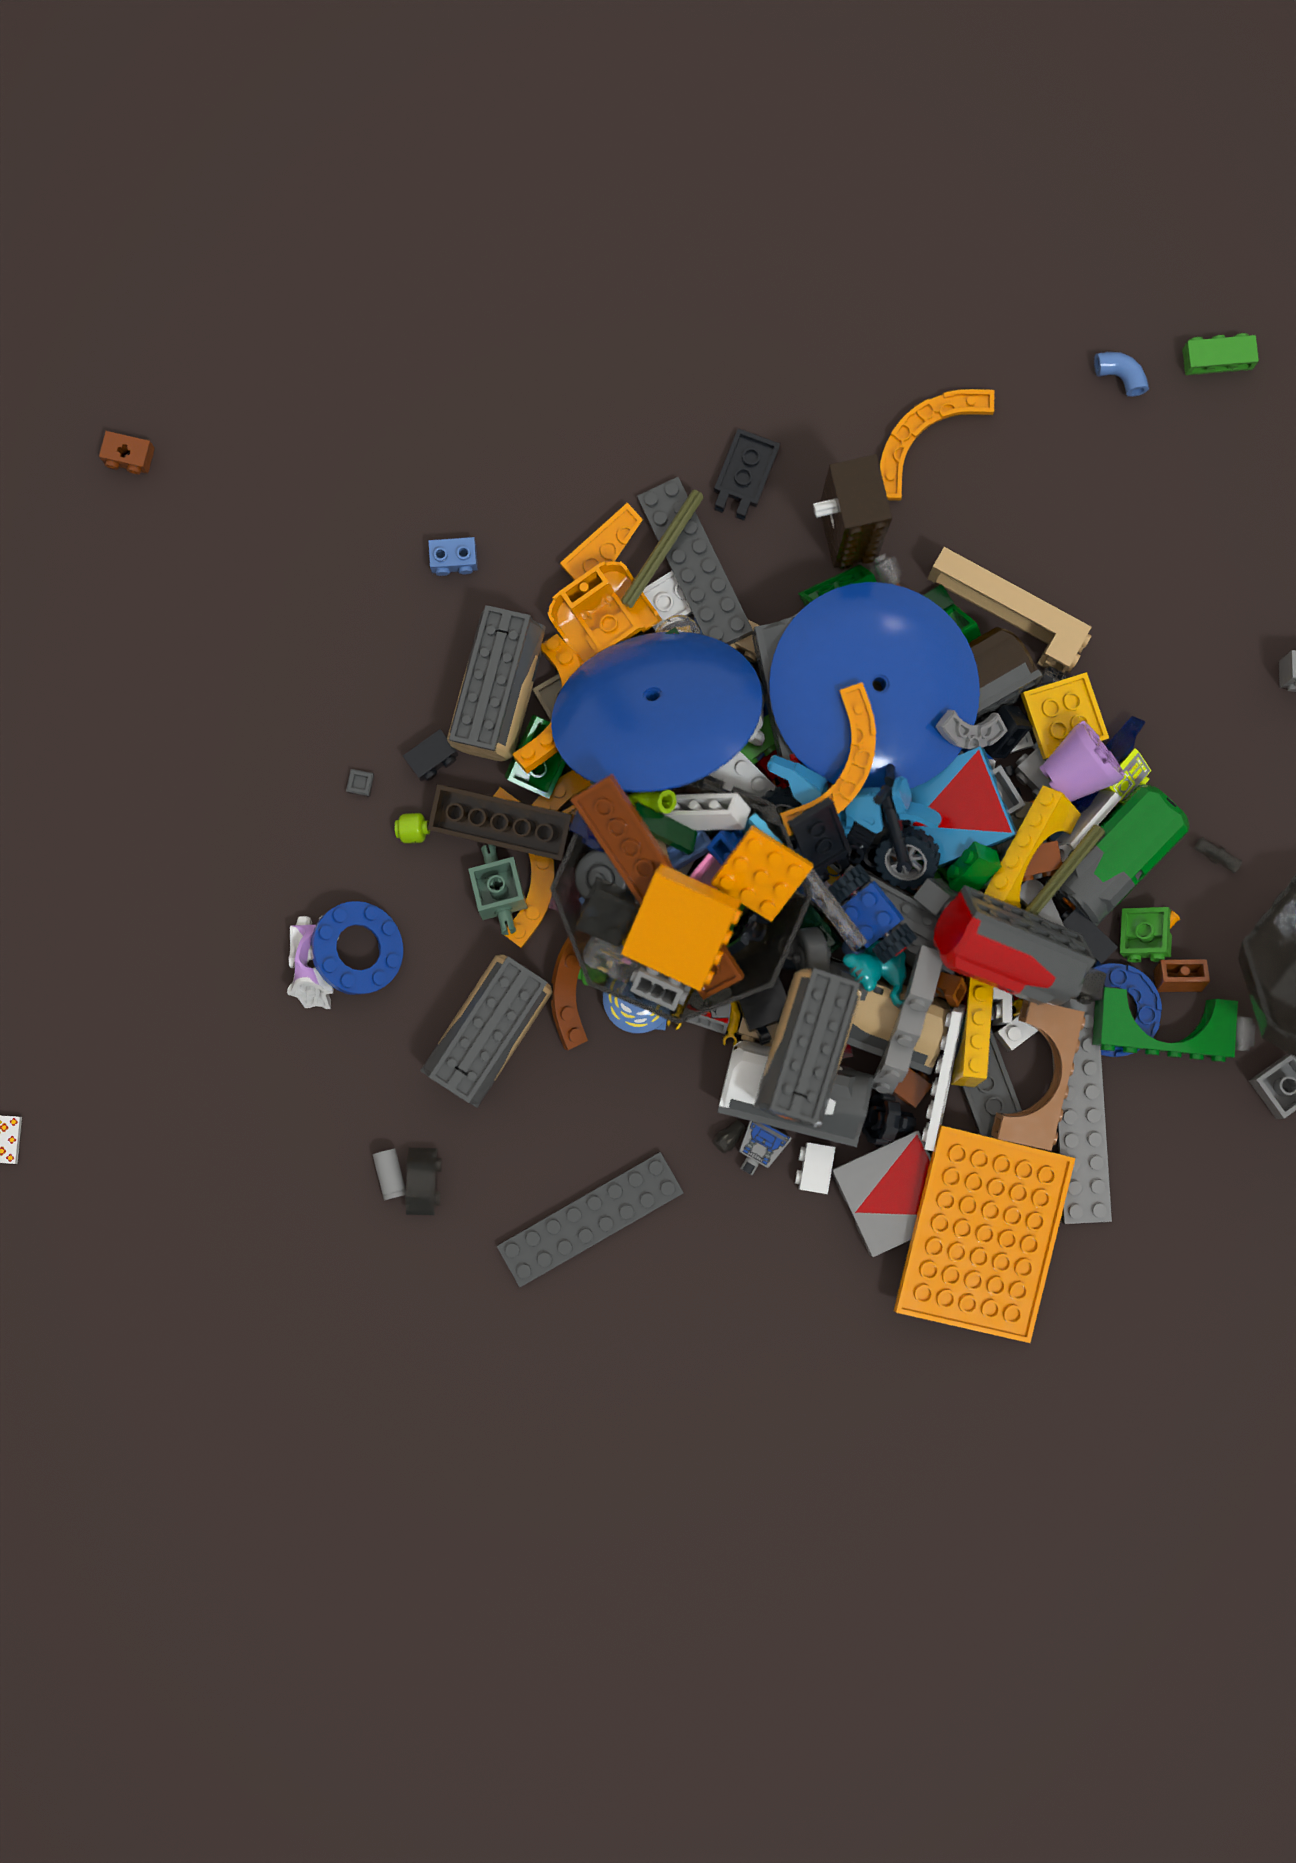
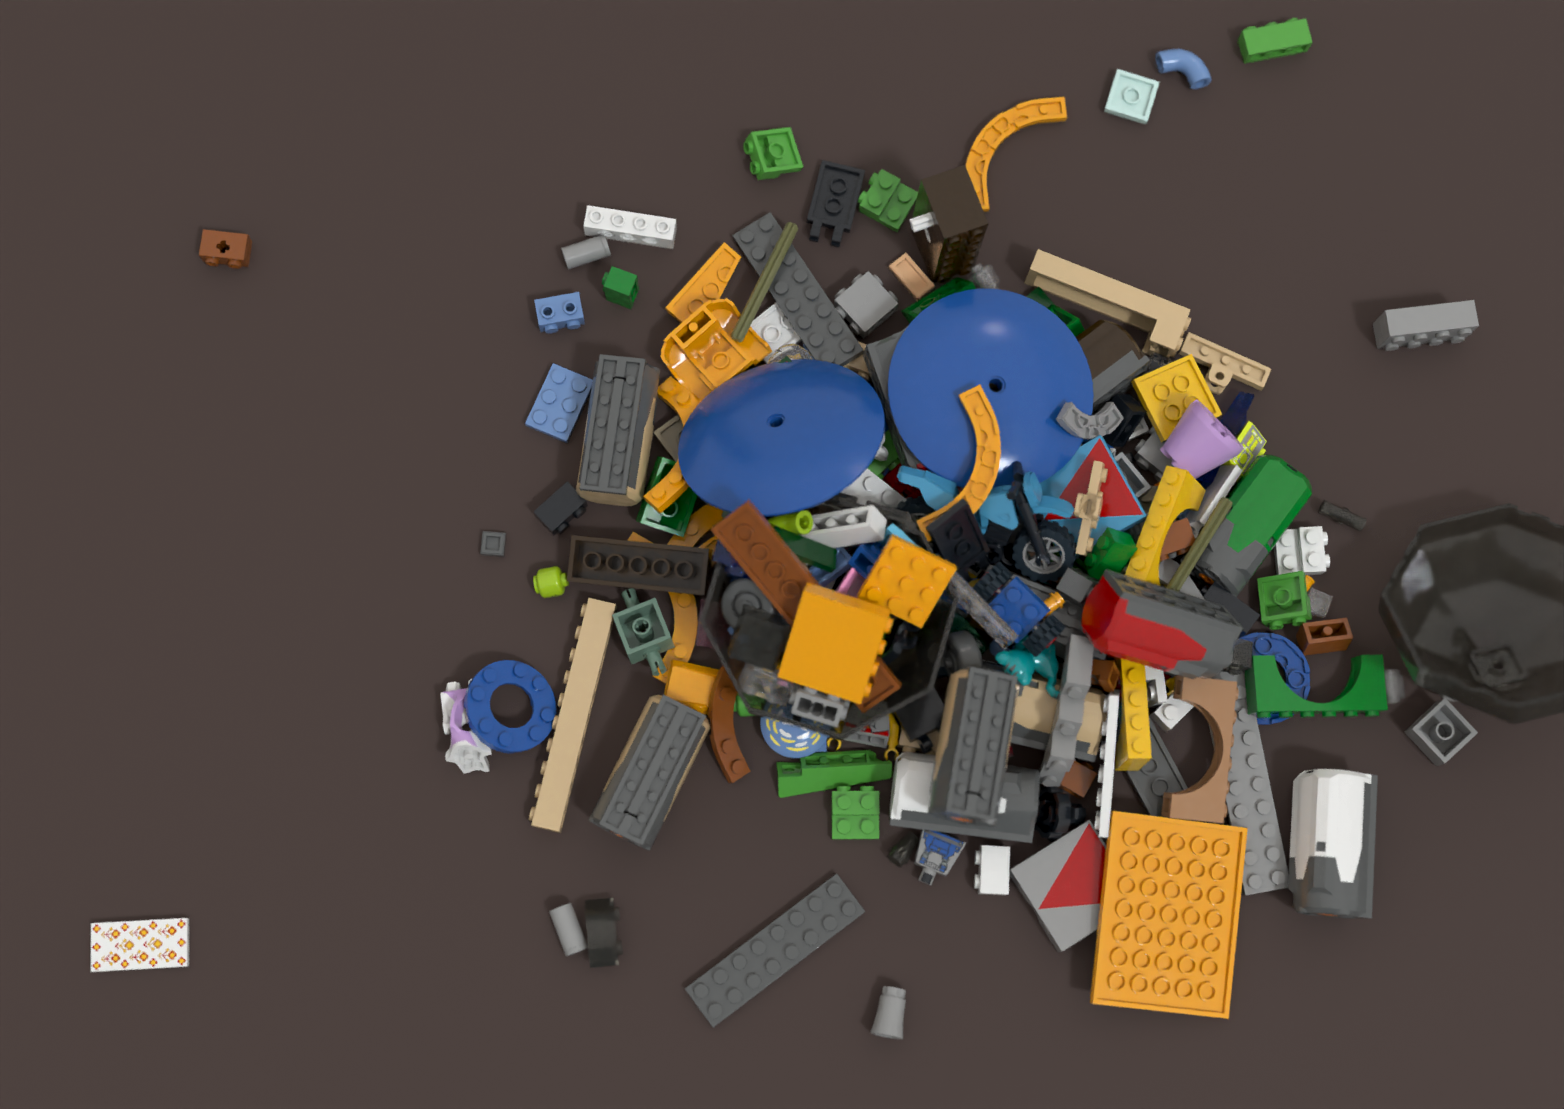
camera: 15 degrees left, 5 degrees down
(419, 964) = (573, 716): none -> tan brick
(442, 648) = (559, 403): none -> medium blue plate
(486, 496) = (586, 251): none -> light grey pin
(516, 537) = (620, 287): none -> green brick
(534, 476) = (630, 227): none -> white brick
(537, 948) = (690, 684): none -> light orange slope
(667, 1050) = (829, 771): none -> bright green wedge
(686, 1095) = (855, 813): none -> bright green plate
(688, 415) = (772, 153): none -> bright green plate
(695, 1296) = (890, 1014): none -> light grey plant
(762, 582) = (865, 304): none -> light grey brick
(798, 477) = (887, 200): none -> bright green plate
(813, 559) = (911, 276): none -> light nougat tile
(908, 911) = (1053, 602): none -> light orange pin
(958, 819) = (1089, 508): none -> tan plate
(1063, 397) = (1131, 96): none -> light aqua plate
(1119, 686) = (1224, 364): none -> tan plate
(1159, 1184) = (1333, 843): none -> piece
(1171, 886) = (1302, 551): none -> white plate
(1181, 940) = (1319, 602): none -> clear plate

